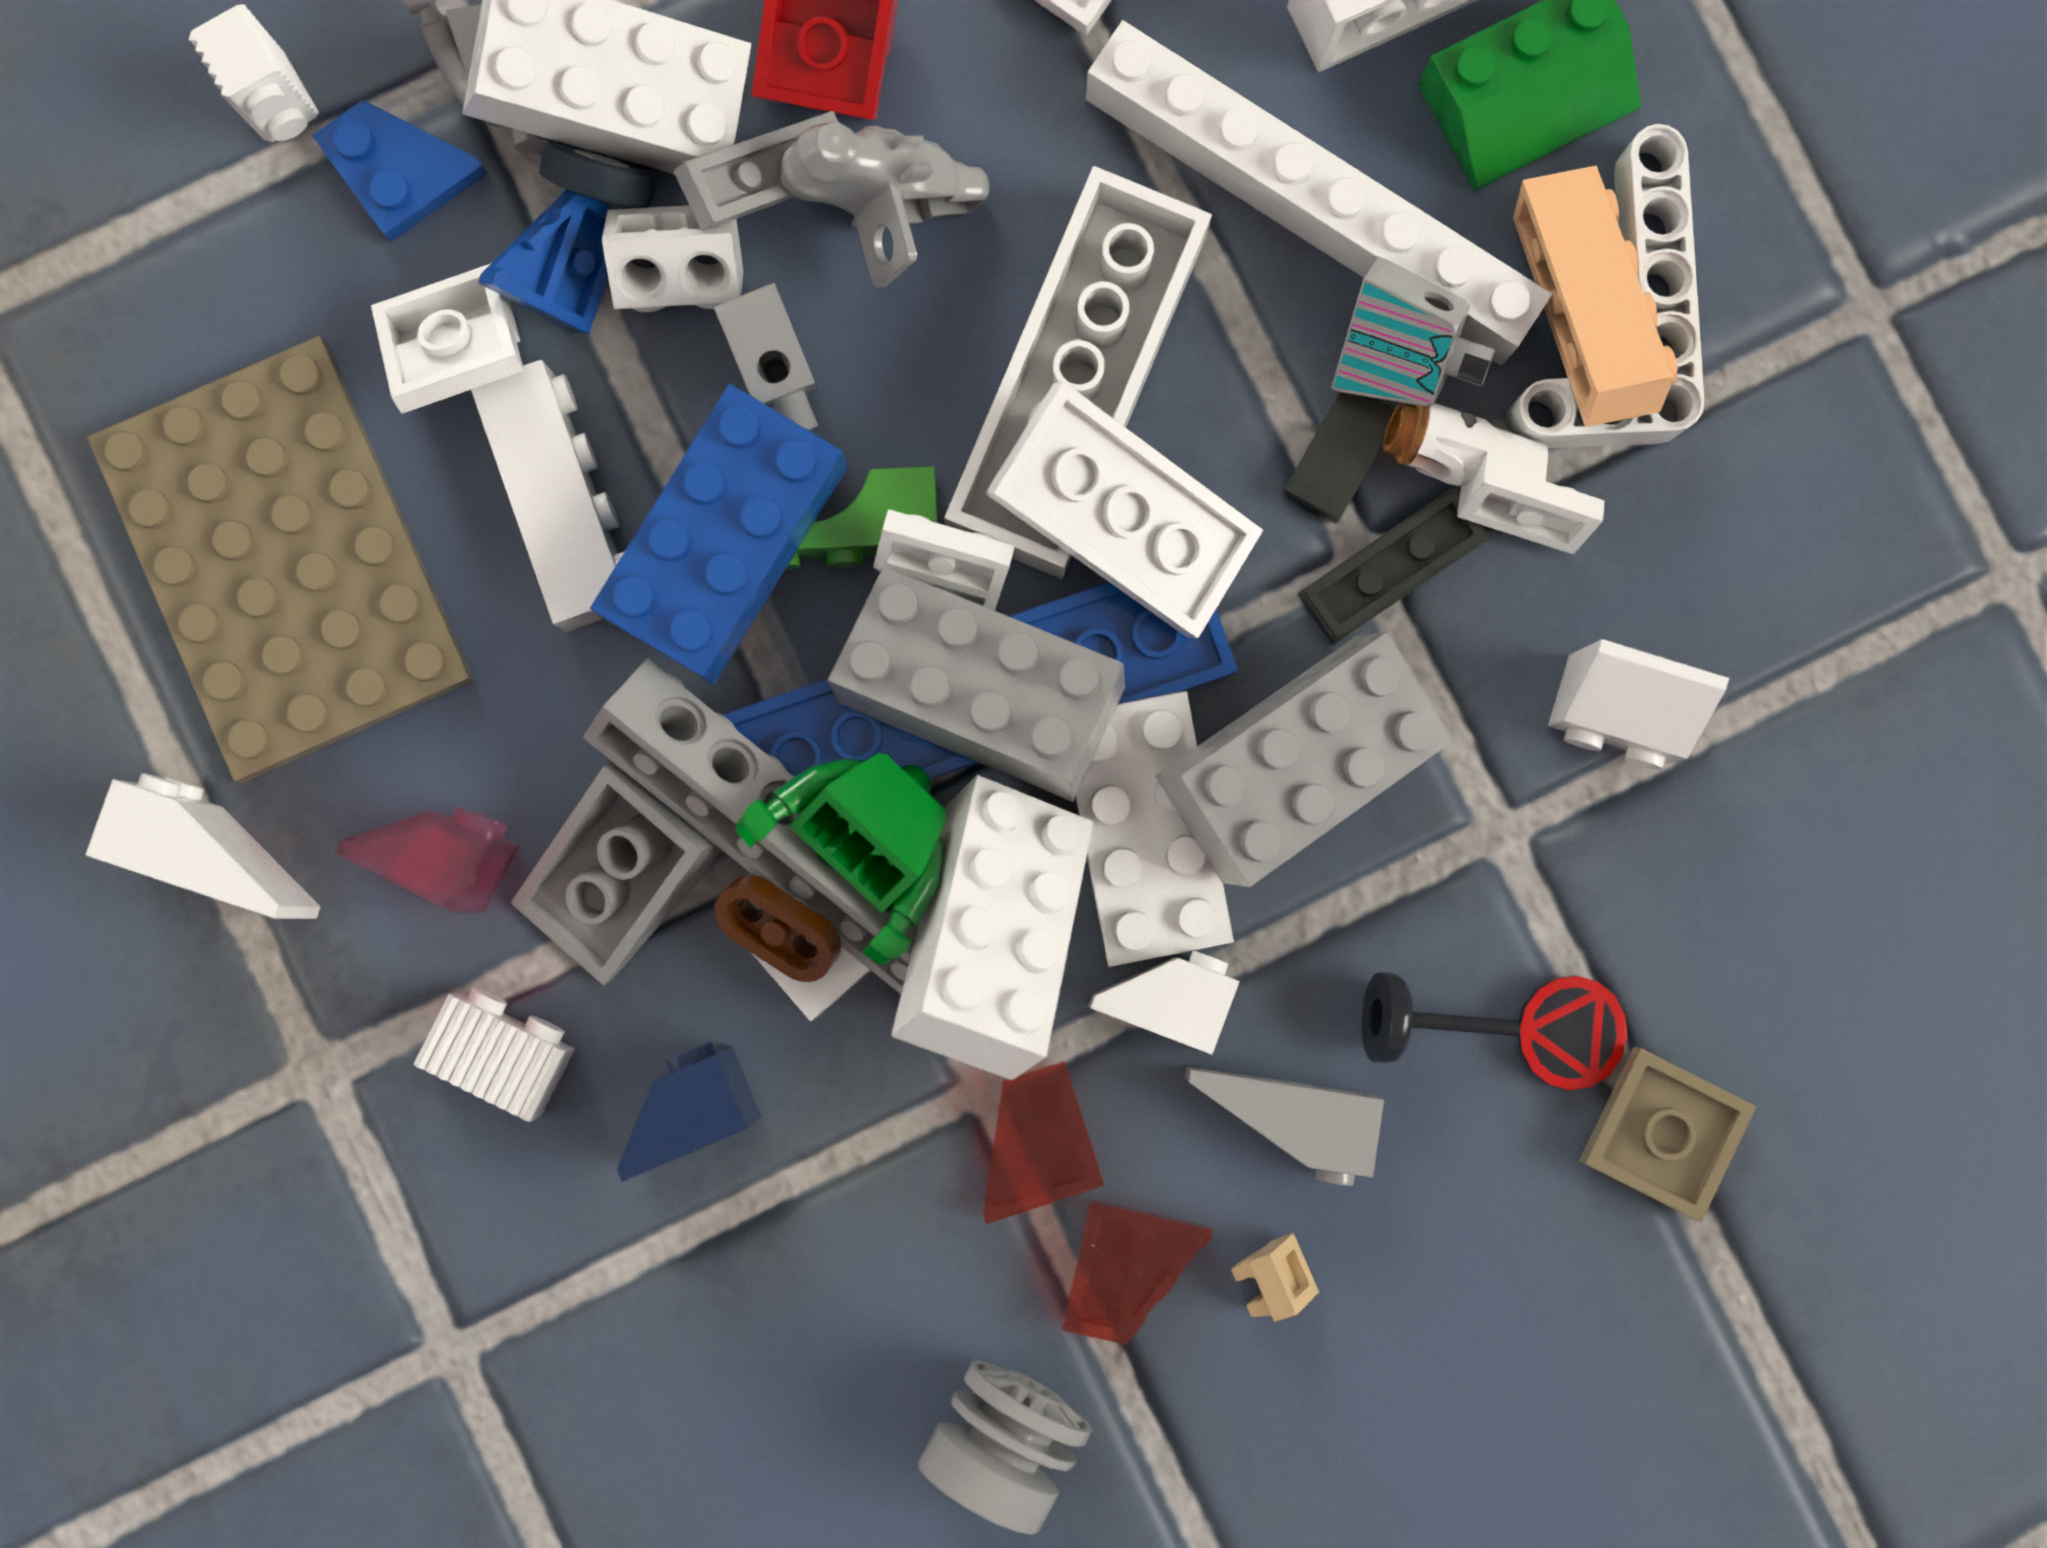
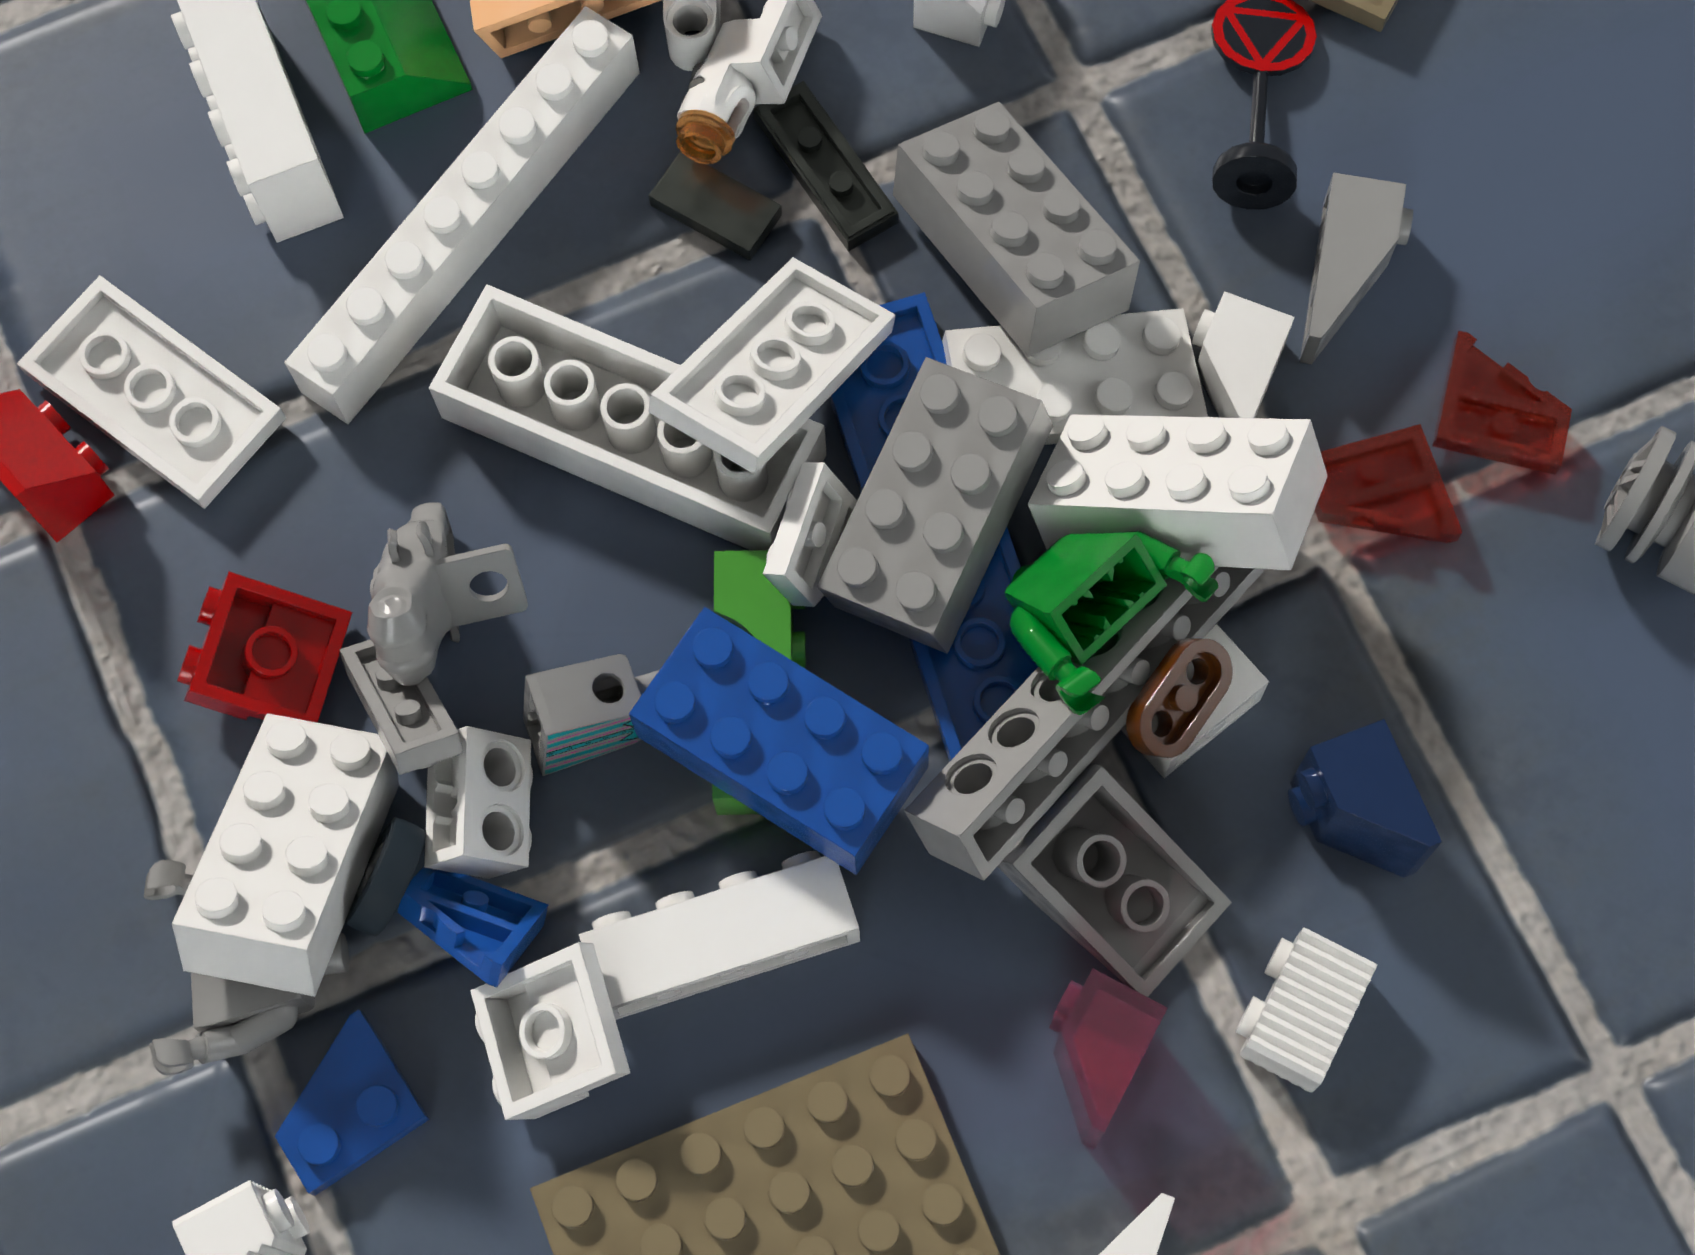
camera: 80 degrees left, 15 degrees down
(1281, 1278) = (1502, 273): tan tile -> none
(1407, 339) = (619, 128): torso -> none

